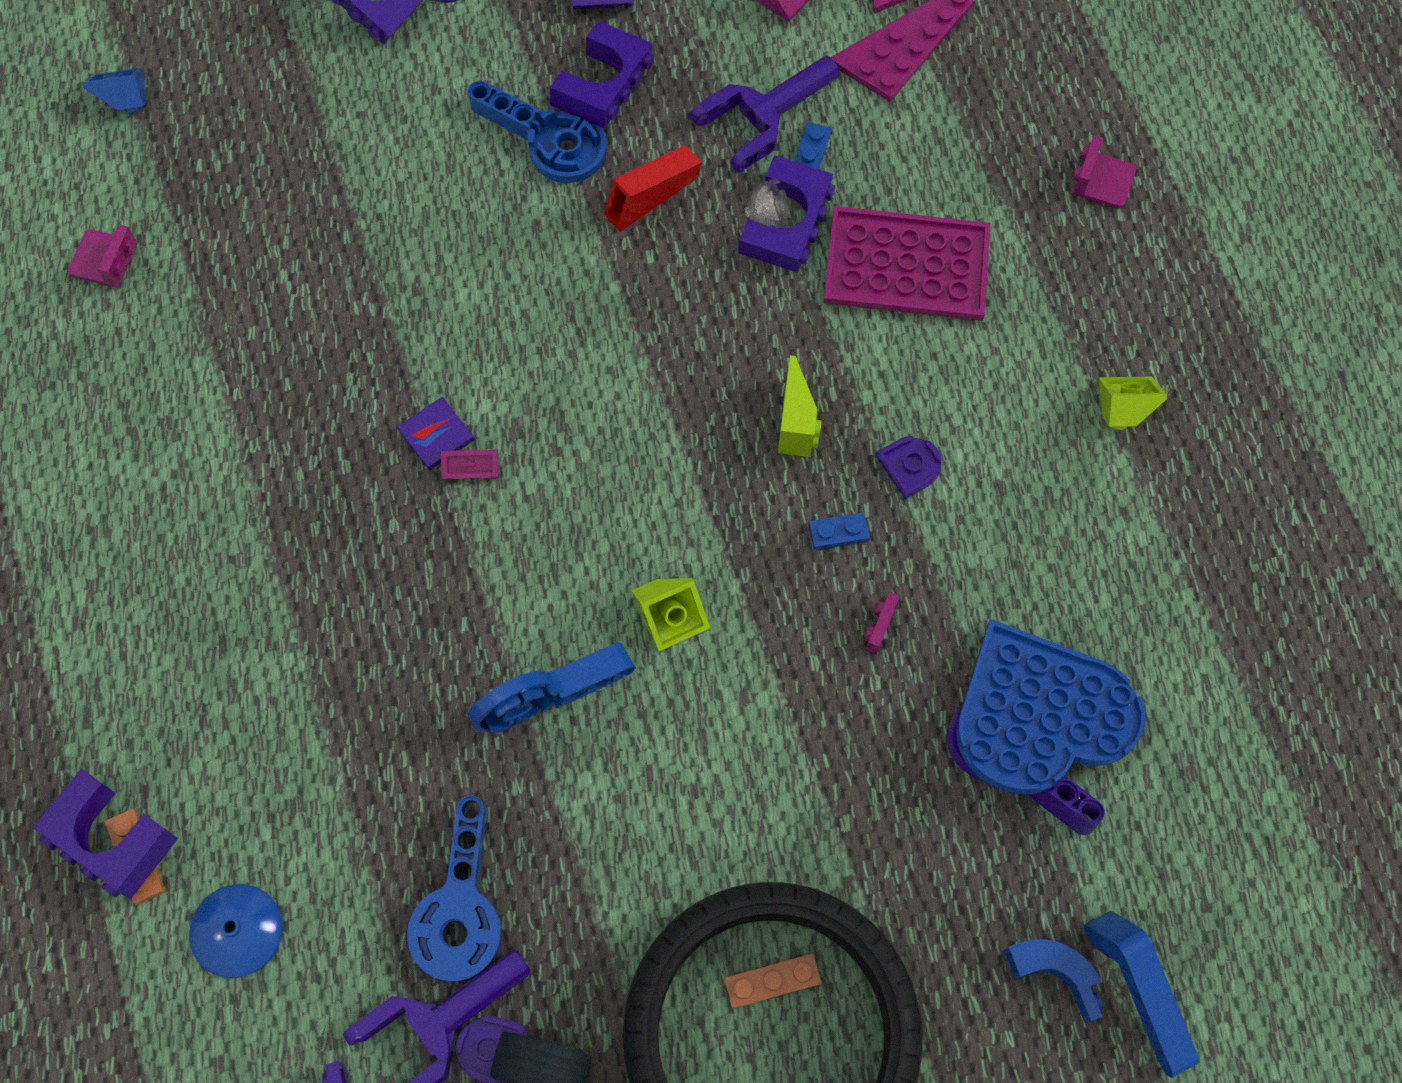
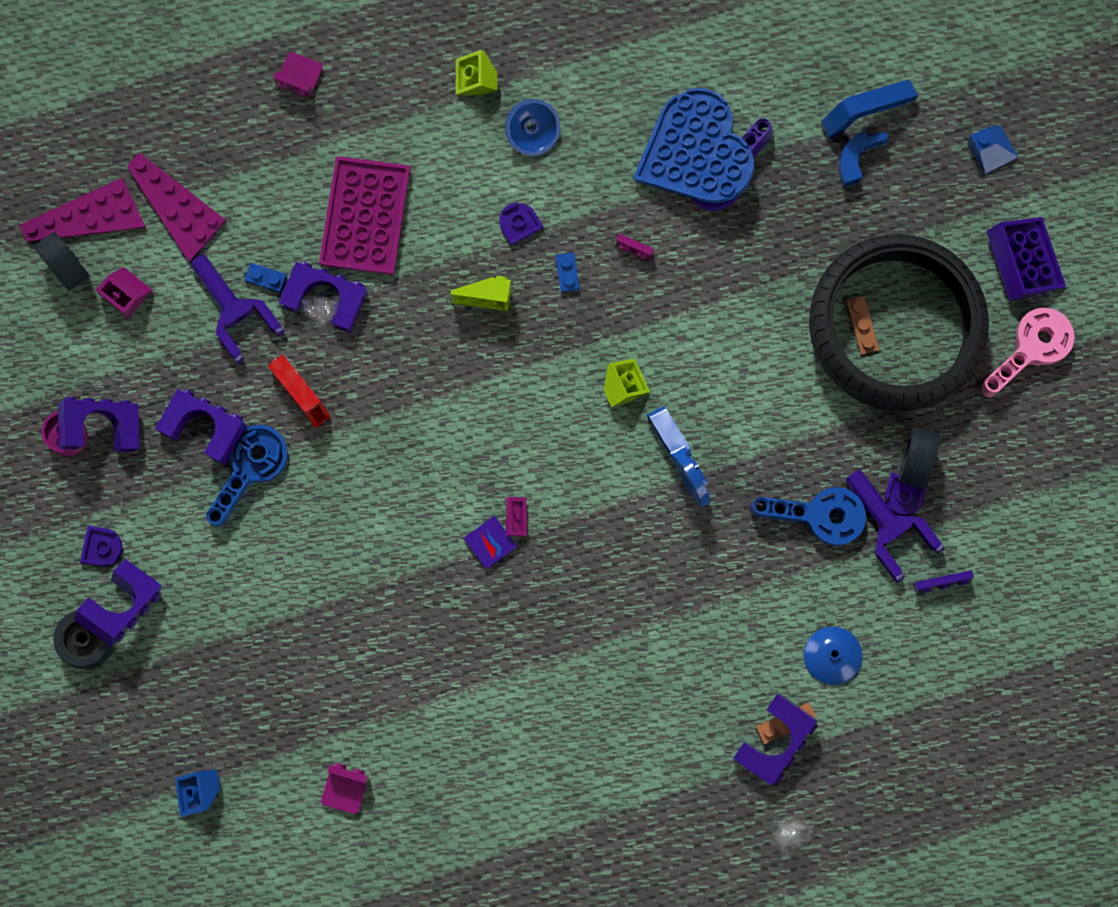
camera: 85 degrees left, 10 degrees up
(1038, 468) = (544, 127): none -> blue dish

